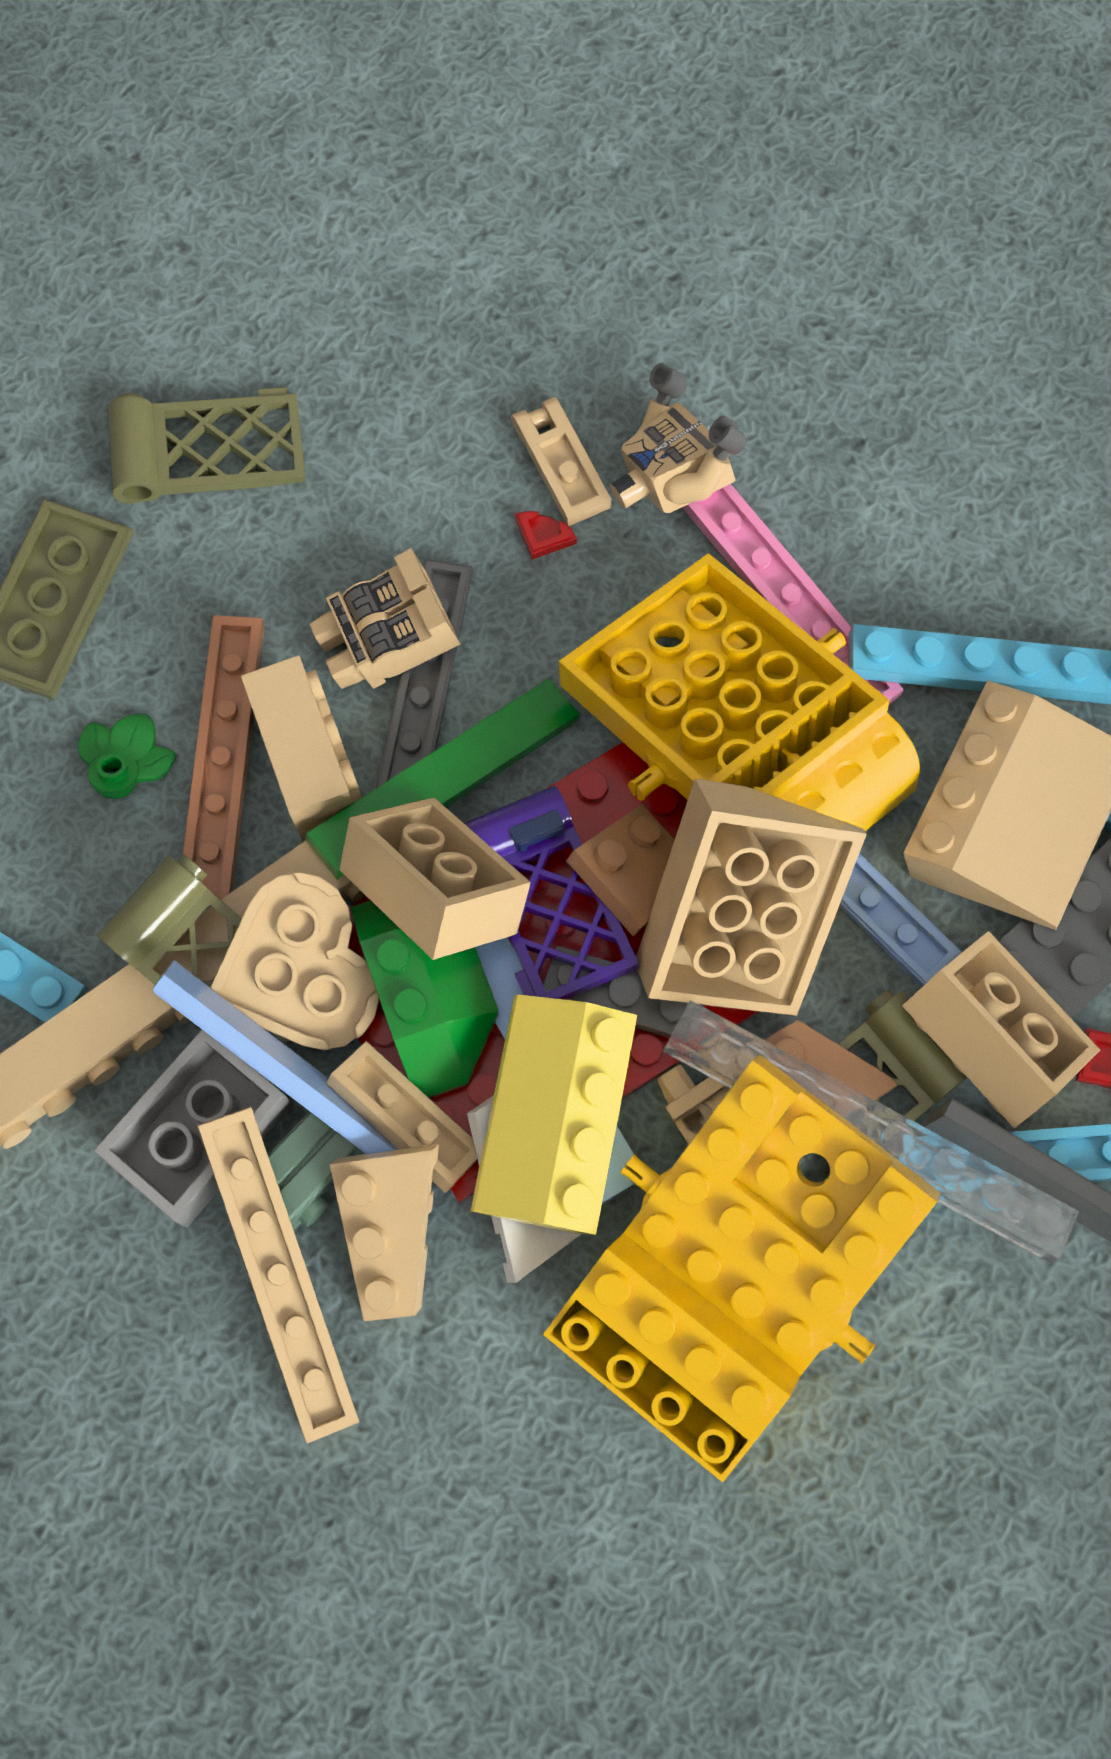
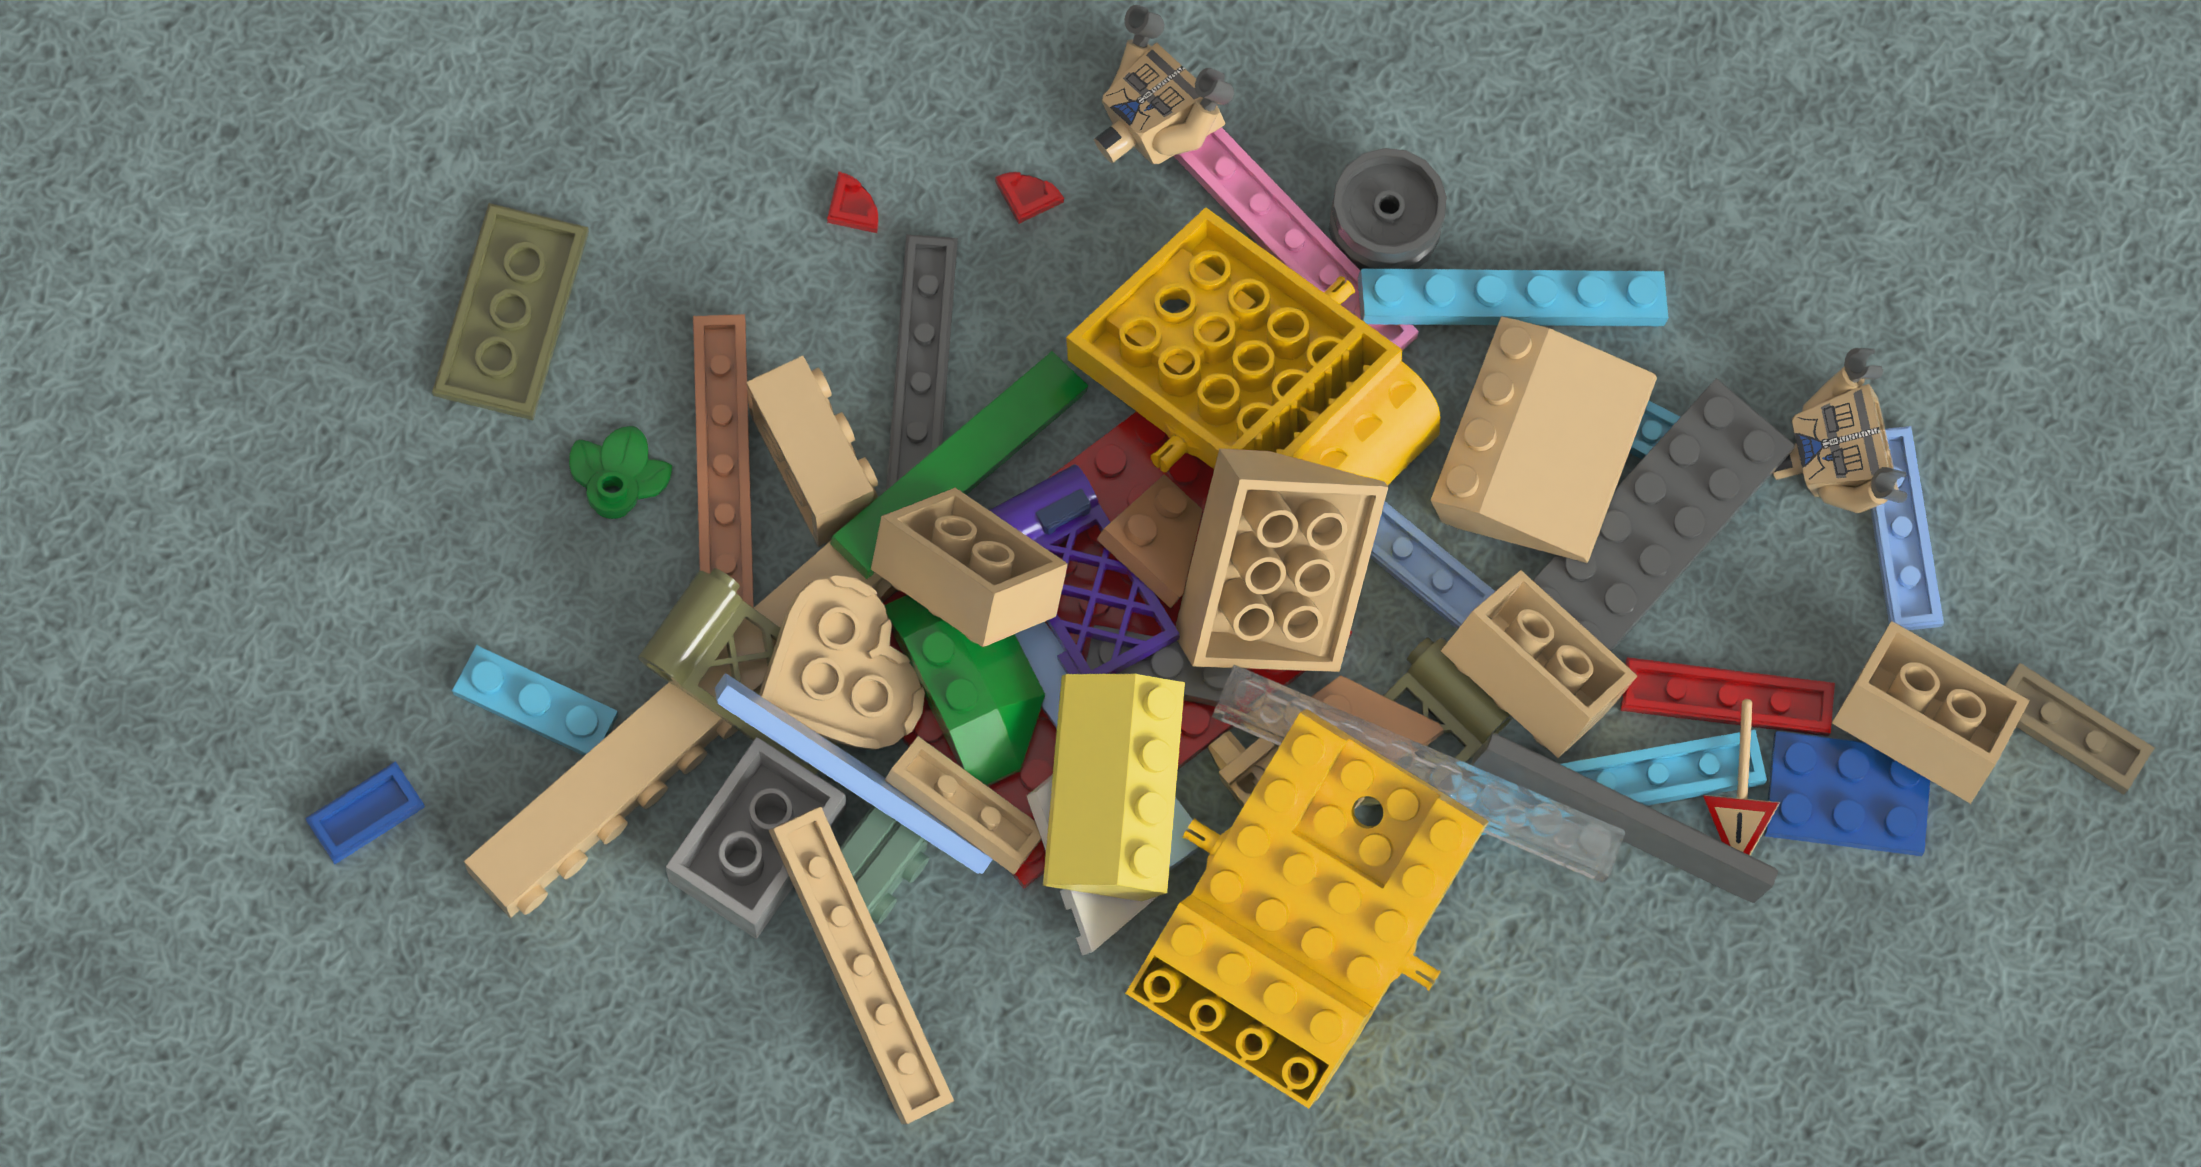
camera: 15 degrees left, 0 degrees up
(141, 442) = (586, 130): olive piece -> none
(378, 529) = (852, 205): none -> red tile
(385, 624) = (880, 309): tan hips -> none
(385, 1220) = (959, 911): tan wing -> none
(562, 462) = (1039, 115): tan plate -> none
(884, 571) = (1394, 184): none -> dark grey wheel

